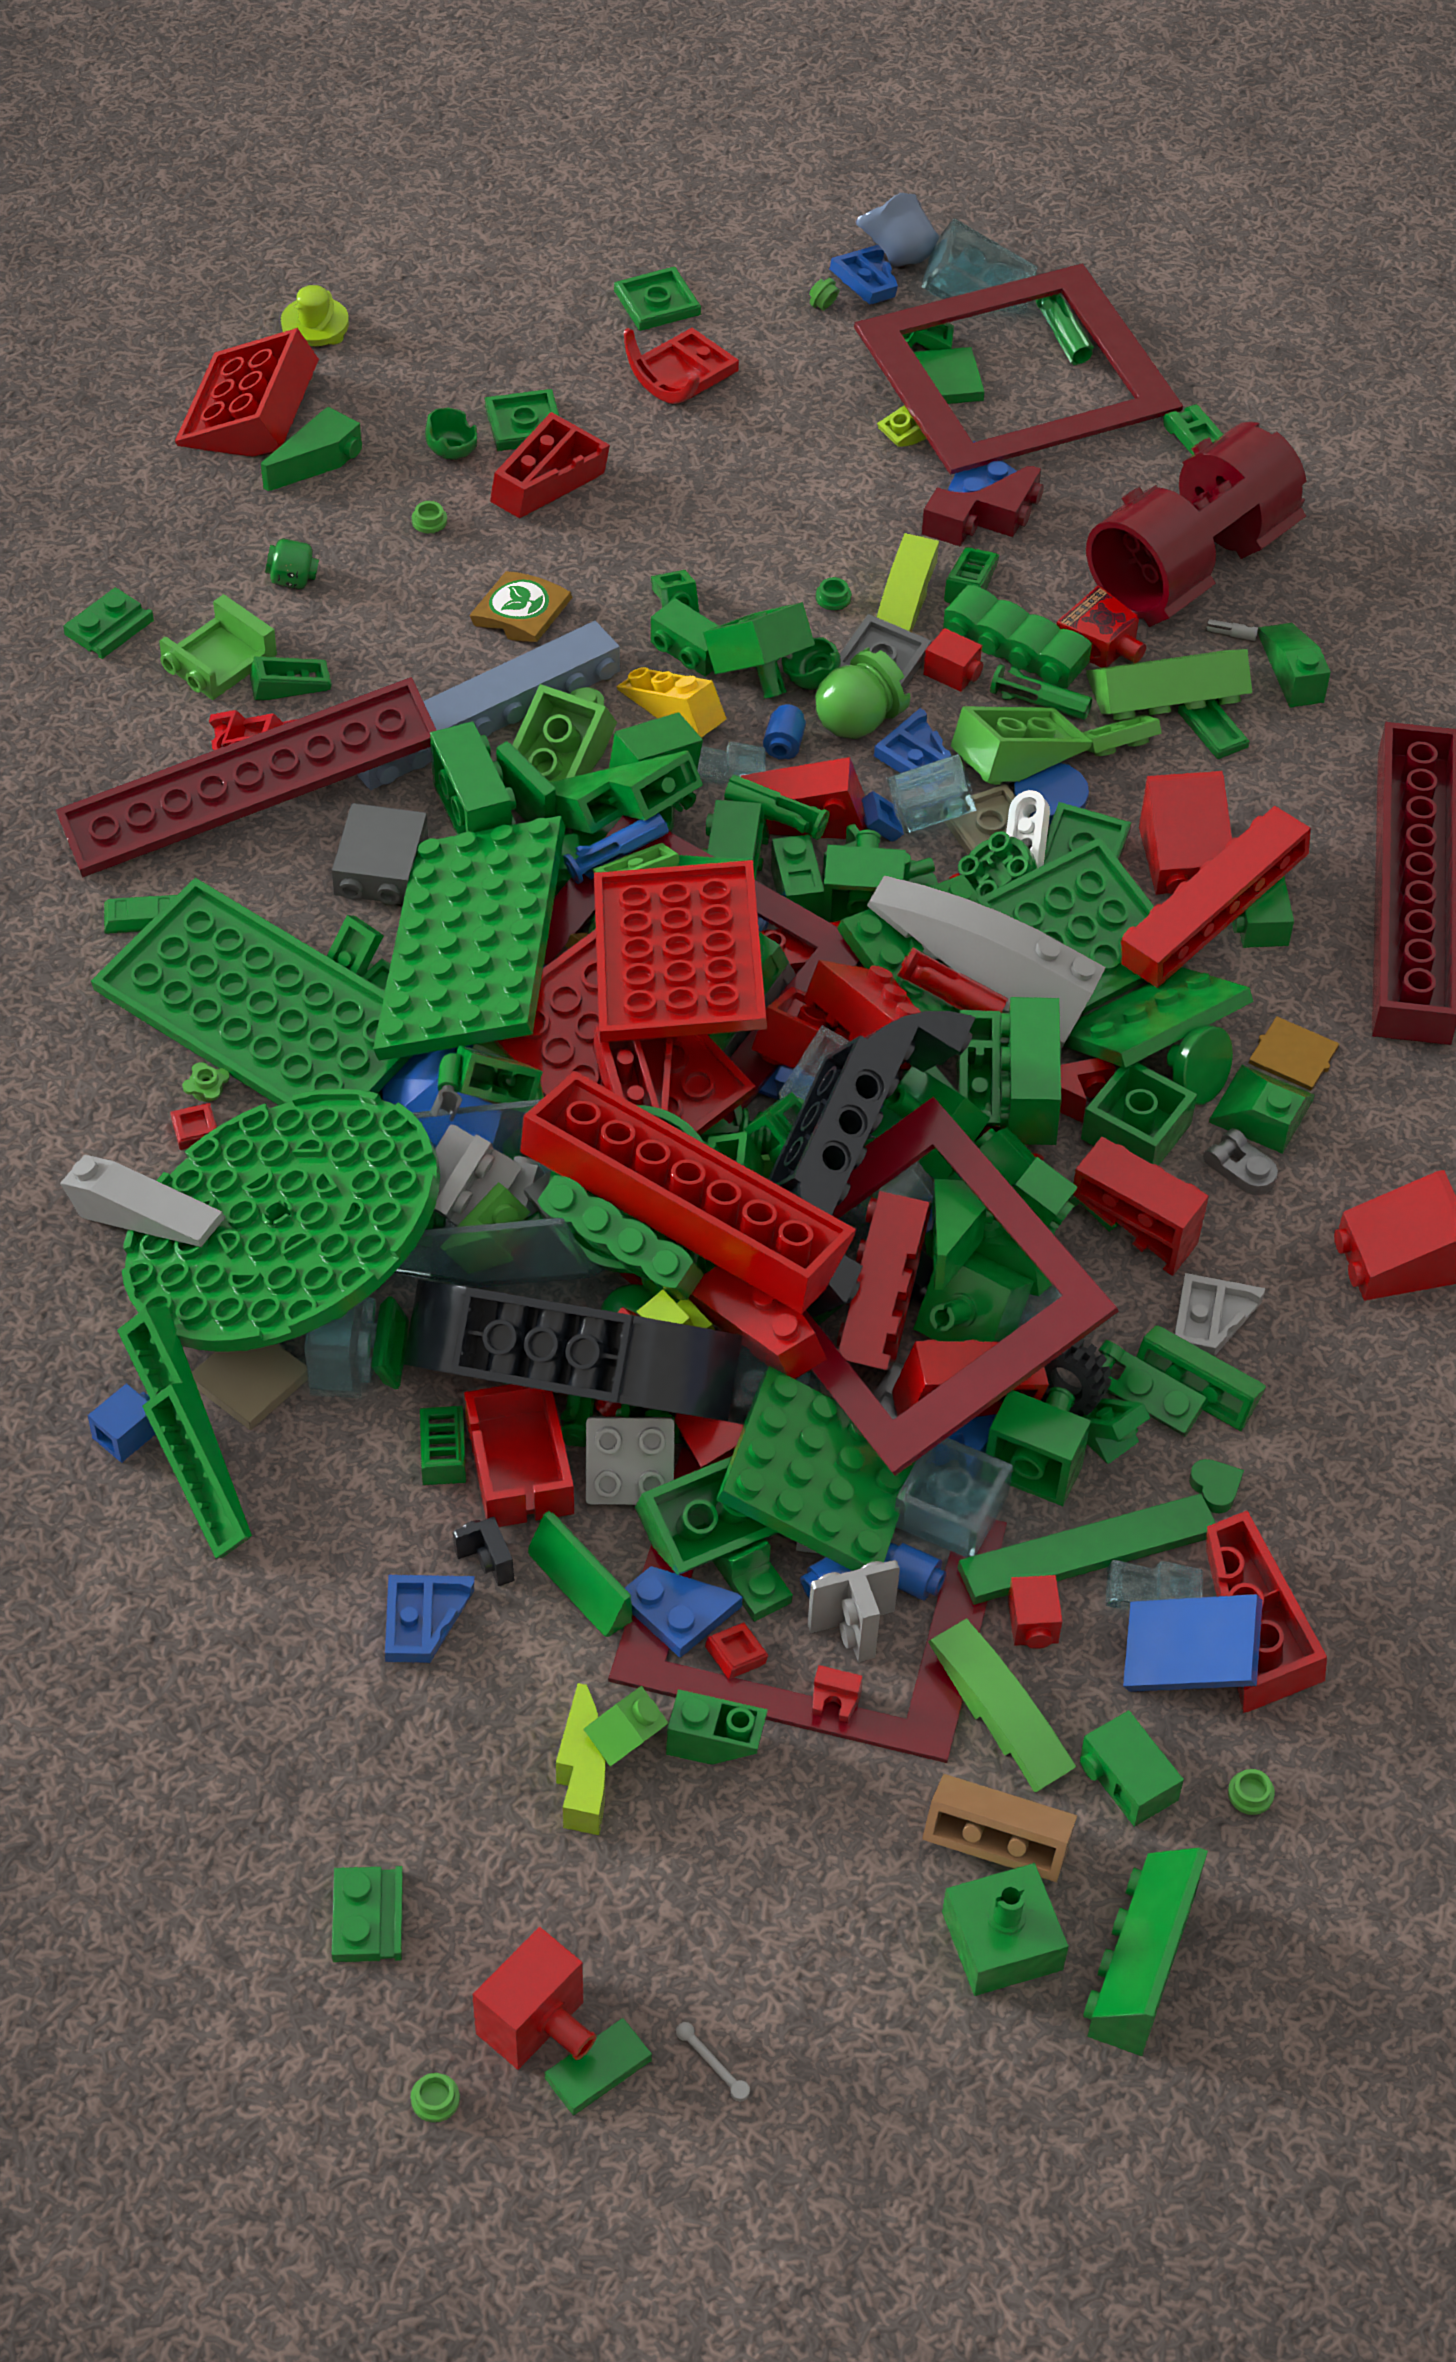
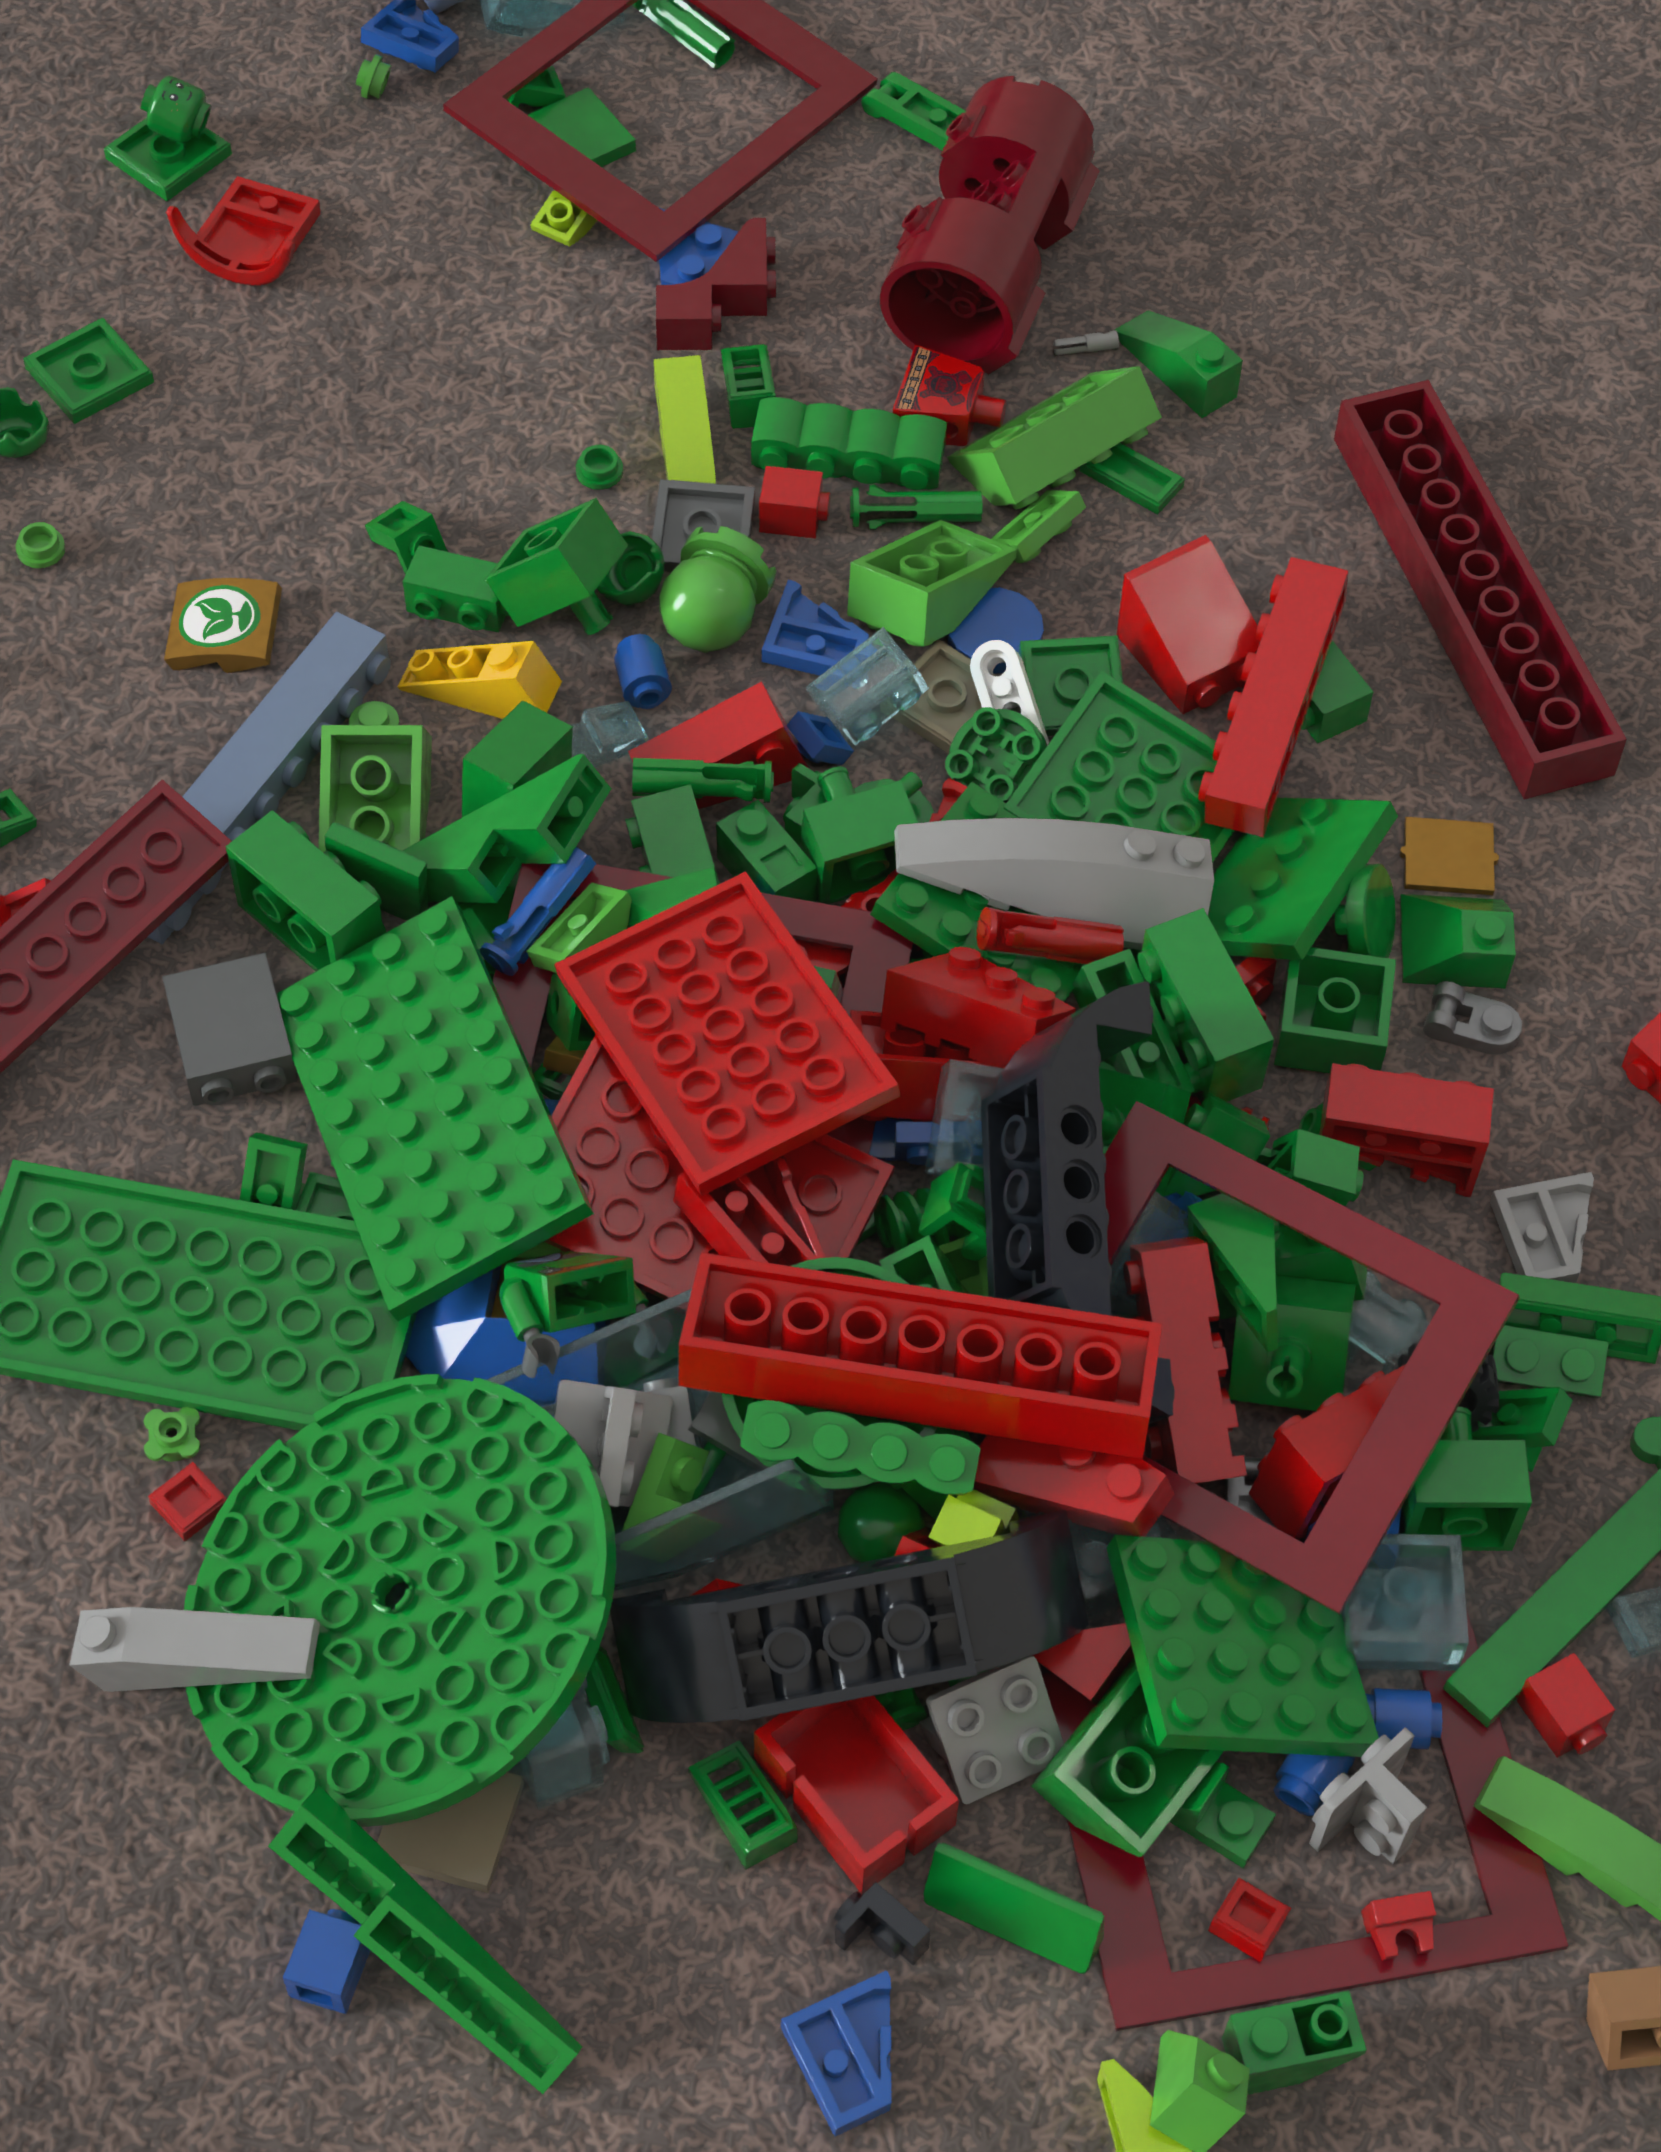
camera: 25 degrees left, 5 degrees up
(547, 466) = (161, 423): red wedge -> none
(672, 270) = (176, 109): none -> green head
(679, 1607) = (1154, 1895): blue wing -> none

